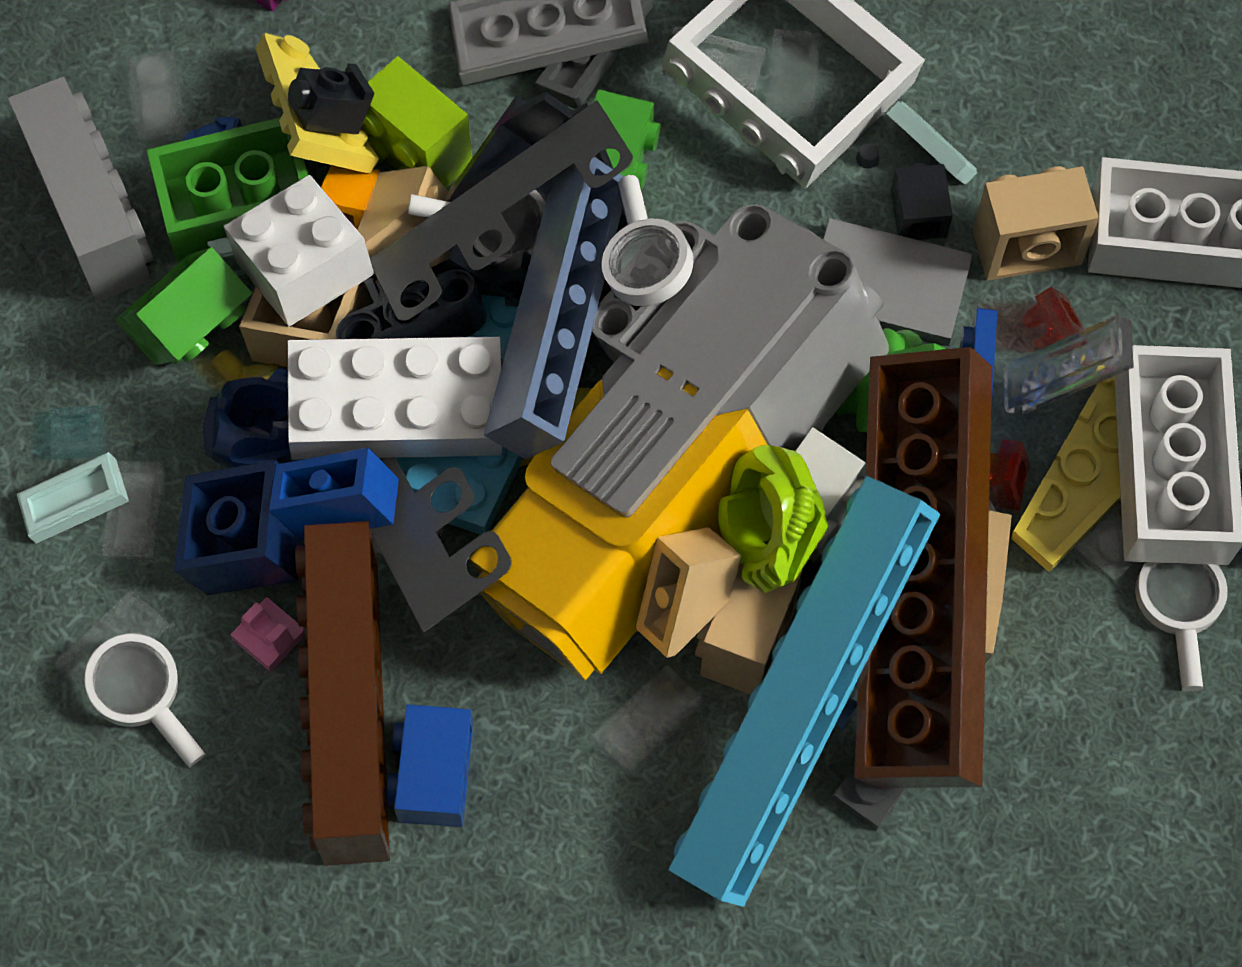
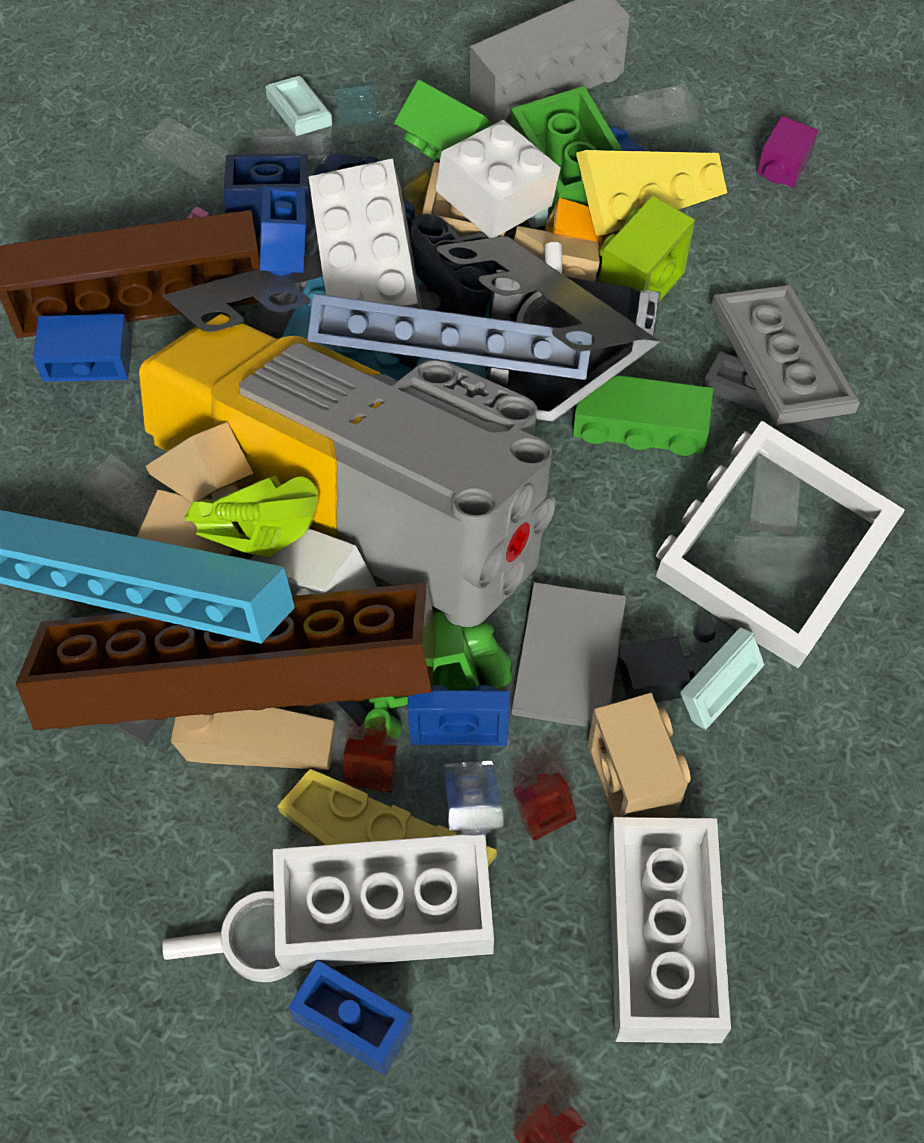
camera: 85 degrees right, 5 degrees down
(134, 684) = (148, 159): piece -> none
(331, 99) = (635, 171): black brick -> none
(648, 256) = (500, 385): piece -> none

